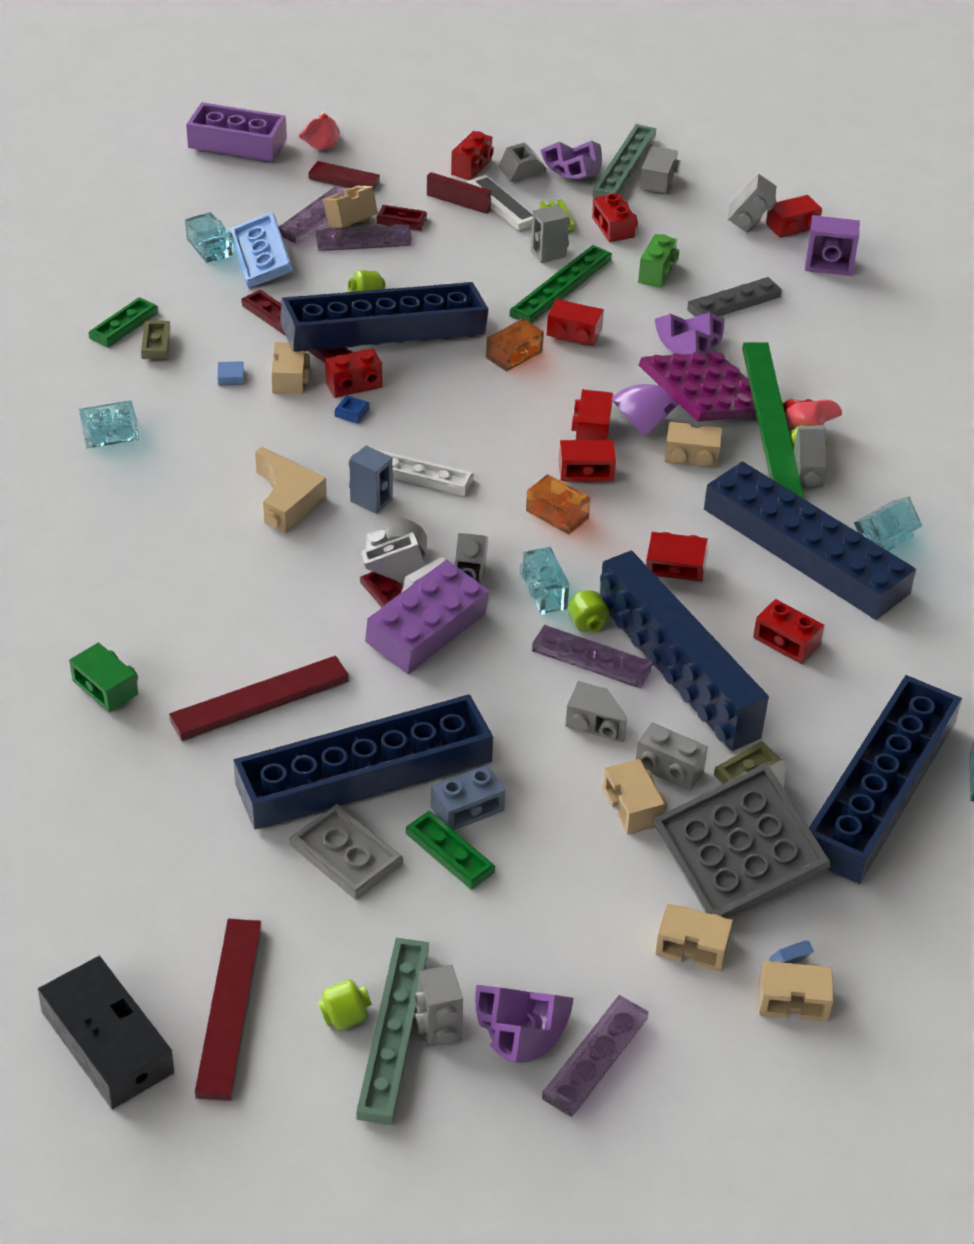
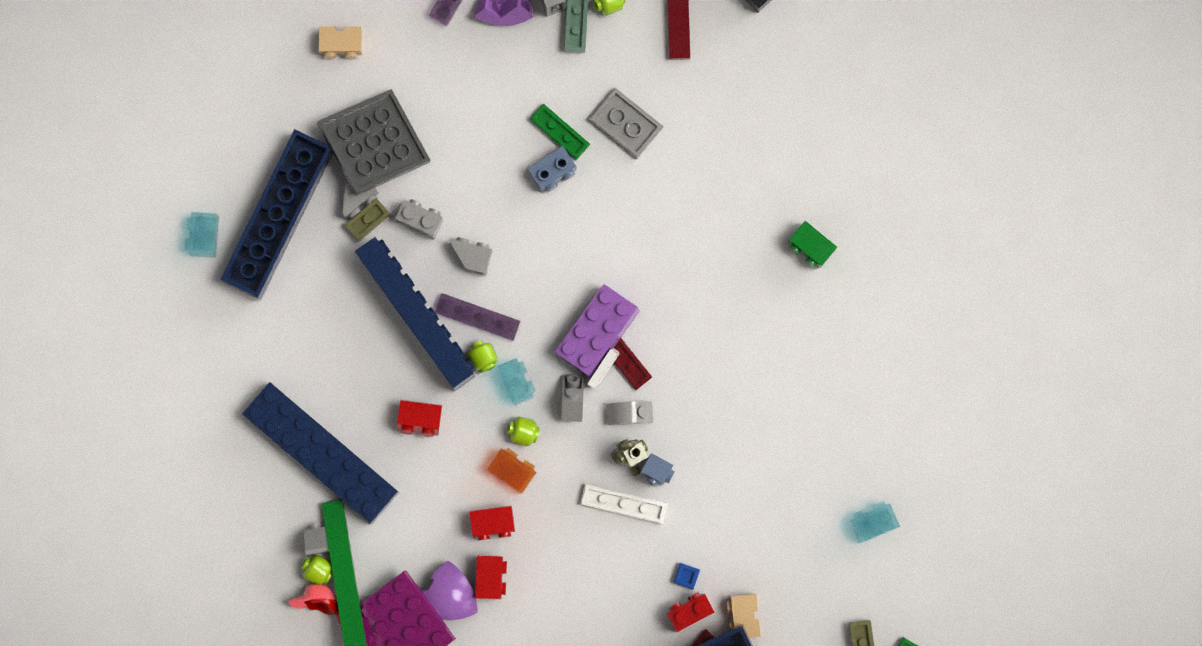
camera: 175 degrees right, 40 degrees up
(230, 373) = (792, 610): medium blue tile -> none
(258, 697) = (704, 249): dark red tile -> none
(294, 490) = (715, 460): tan arch -> none
(362, 761) = (623, 187): dark blue brick -> none
(394, 558) = (628, 386): light grey slope -> none
(405, 499) = (630, 454): none -> olive brick
(539, 533) = (523, 431): none -> lime head
(634, 792) = (439, 177): tan brick -> none
(693, 445) = (415, 556): tan brick -> none
(693, 936) = (400, 75): tan brick -> none
(788, 631) = (336, 352): red brick -> none
(793, 953) = (342, 66): medium blue tile -> none
(890, 523) = (258, 472): clear light blue brick -> none

